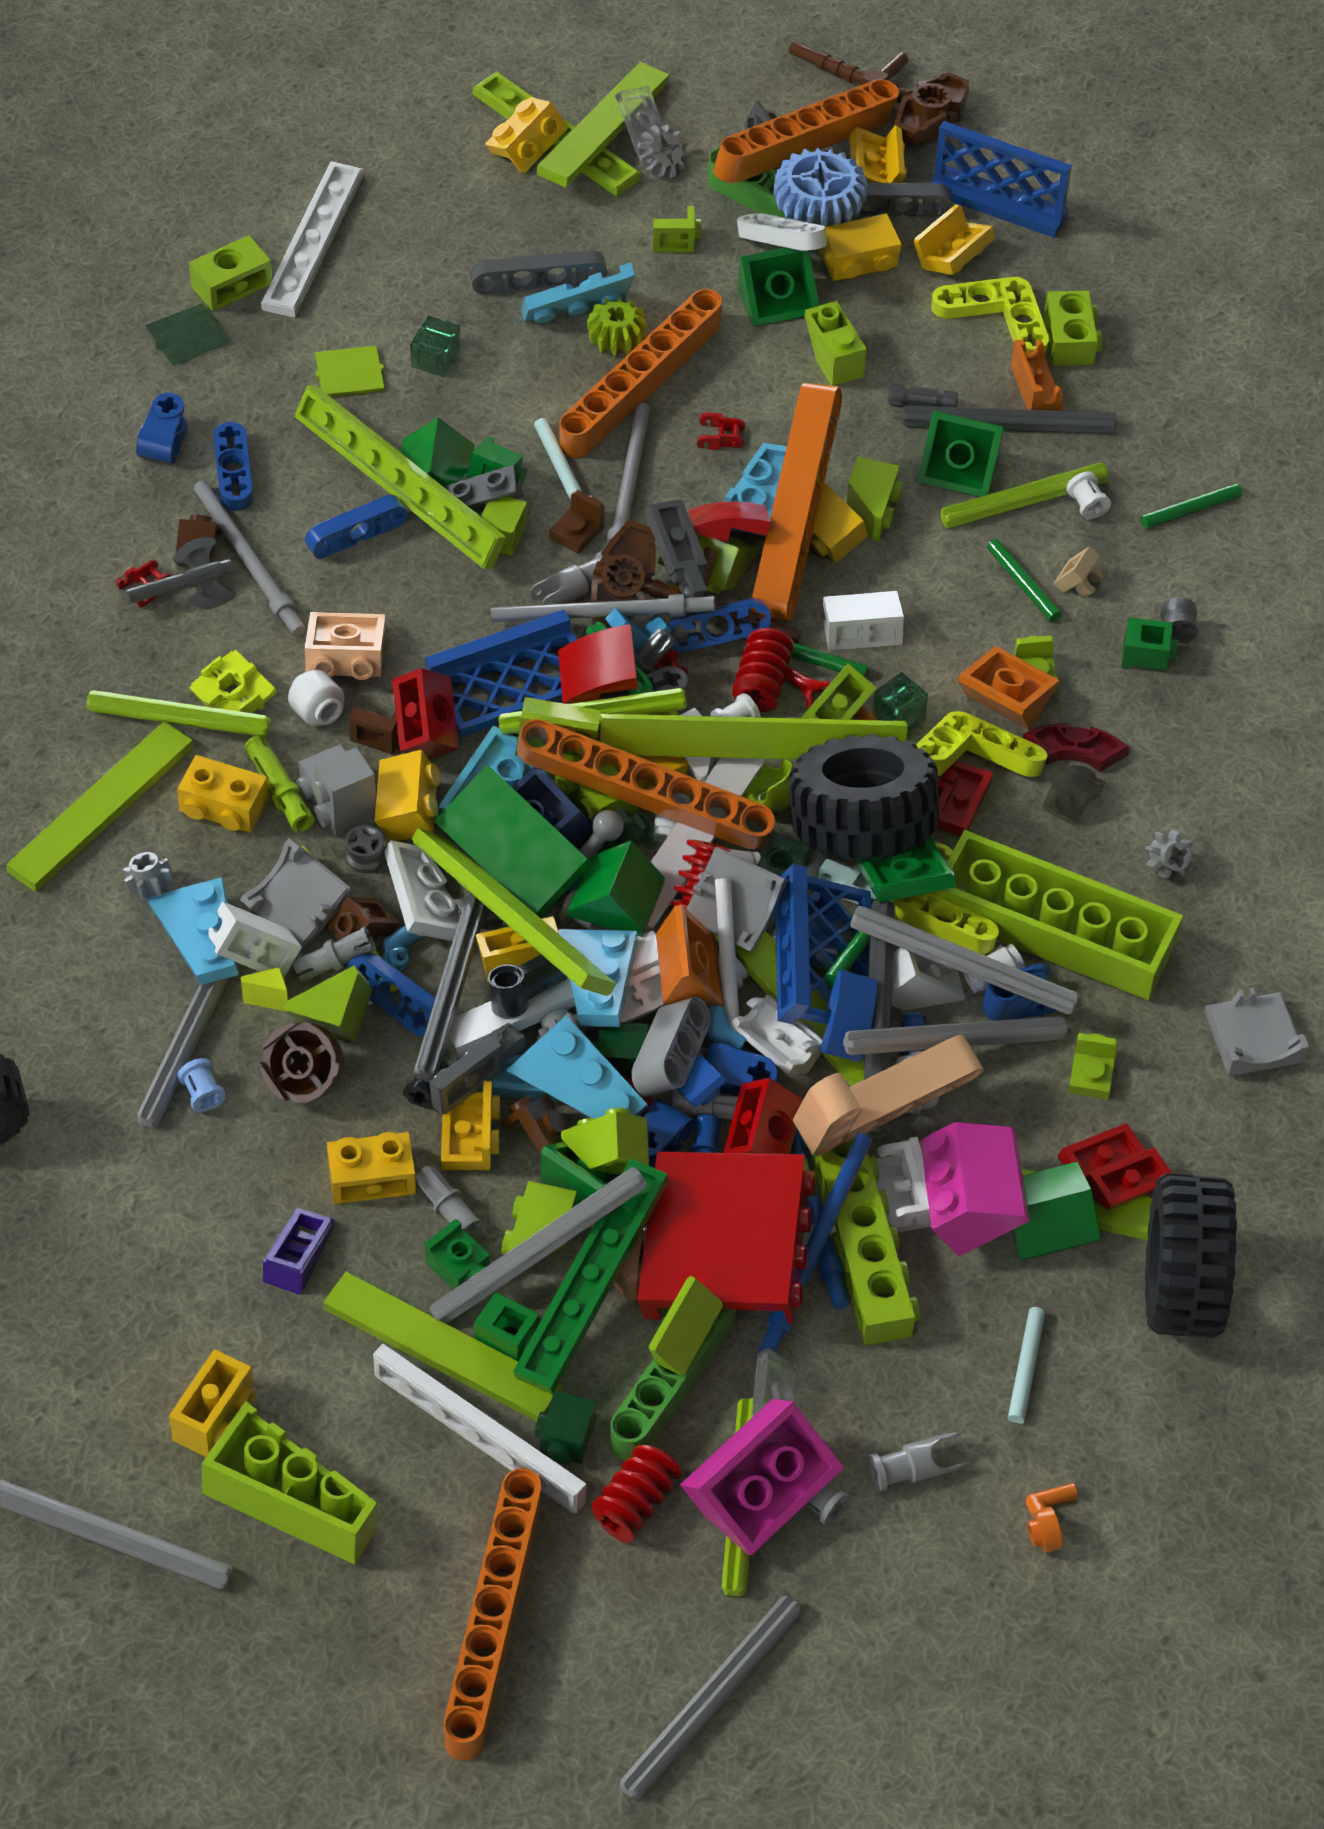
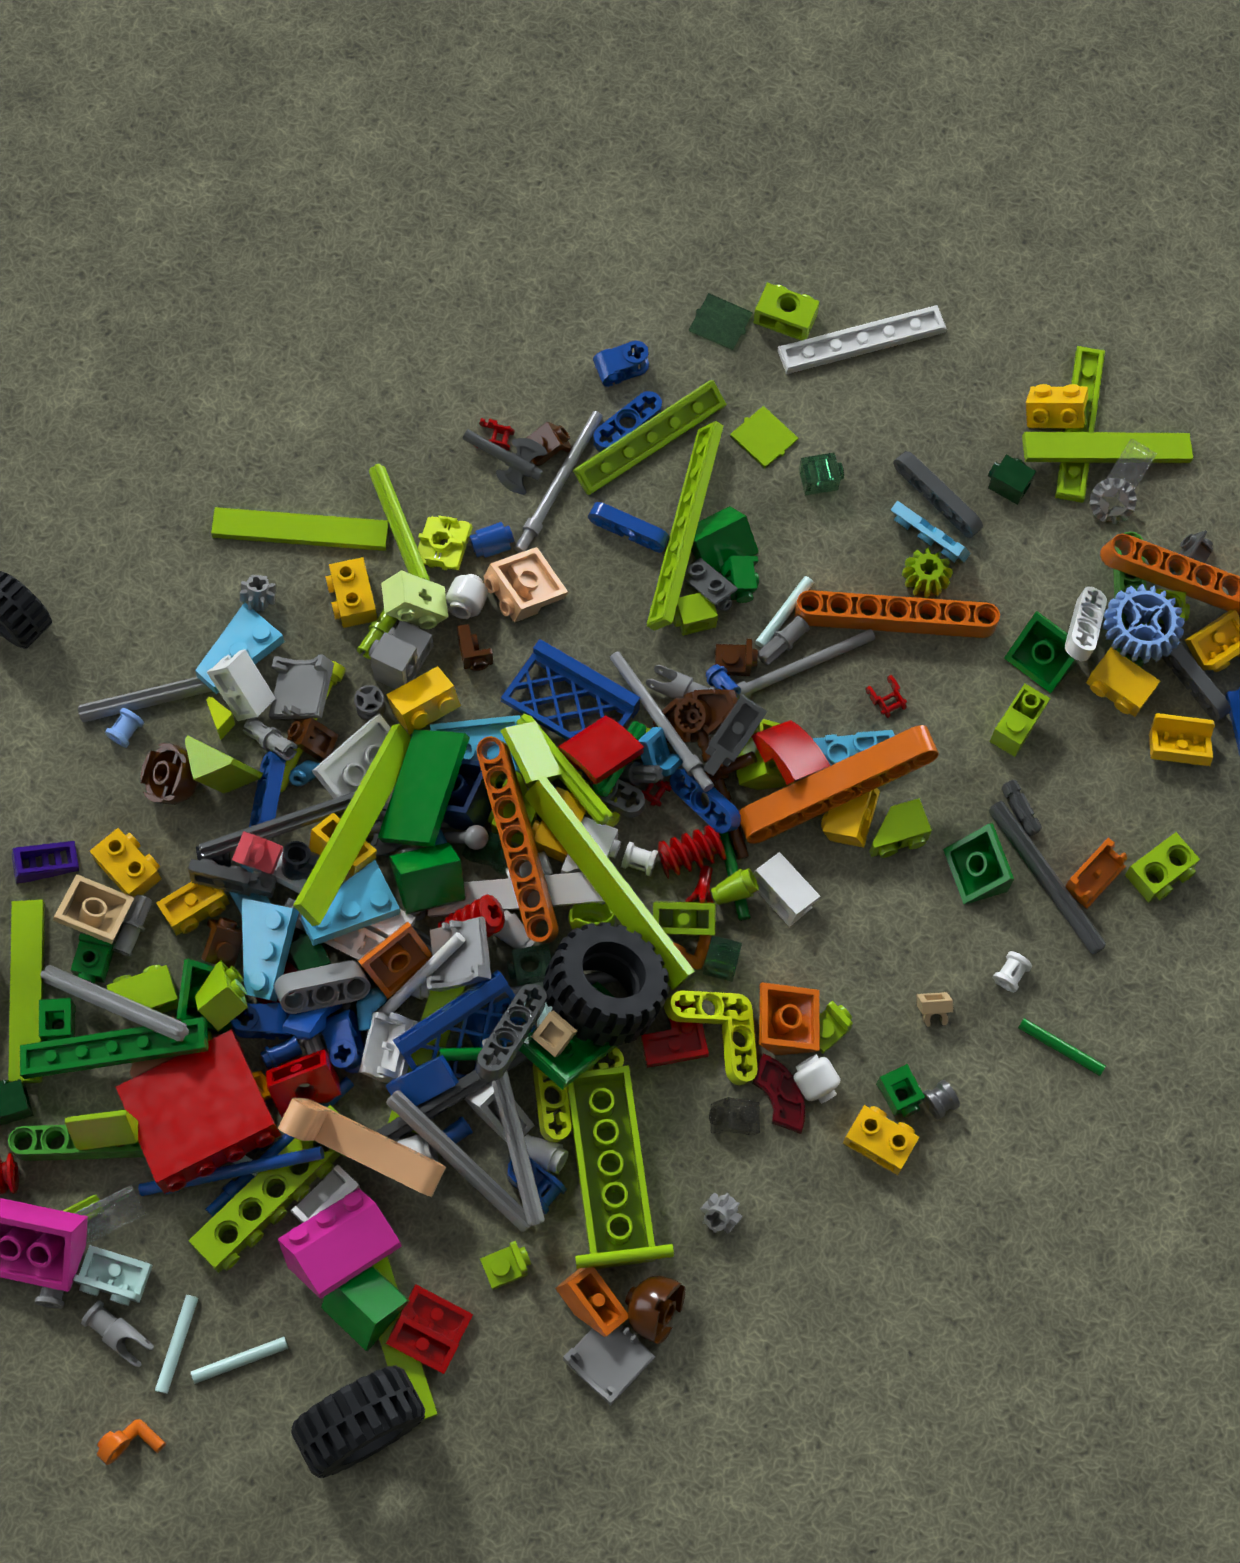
camera: 55 degrees right, 15 degrees up
(268, 645) = (492, 540): none -> blue brick
(269, 456) = (649, 437): none -> lime tile
(288, 734) = (414, 600): none -> yellowish green brick
(406, 1216) = (93, 909): none -> tan slope
(425, 713) = (493, 654): red brick -> none
(474, 1016) = (257, 852): none -> coral bracket
(573, 210) = (1011, 478): none -> dark green brick
(590, 473) = (783, 640): none -> light grey axle
(594, 542) = (718, 677): none -> blue pin
(676, 234) = (1042, 559): lime bracket -> none
(833, 650) = (736, 887): none -> lime cone
(855, 1425) = (114, 1275): none -> light aqua bracket
(890, 908) = (510, 1031): none -> dark grey beam
(895, 853) = (554, 1033): none -> tan tile
(967, 1415) = (176, 1344): none -> light aqua bar
(1001, 300) = (1155, 804): neon yellow beam -> none
(1016, 497) = (981, 926): lime axle -> none
(1024, 580) = (905, 973): green bar -> none
(1085, 702) = (817, 1079): none -> white head
(1169, 939) = (624, 1256): none -> lime bar
(1186, 688) = (881, 1139): none -> yellow brick
(1186, 1005) = (592, 1300): none -> orange slope
(1230, 958) = (653, 1306): none -> reddish brown cylinder

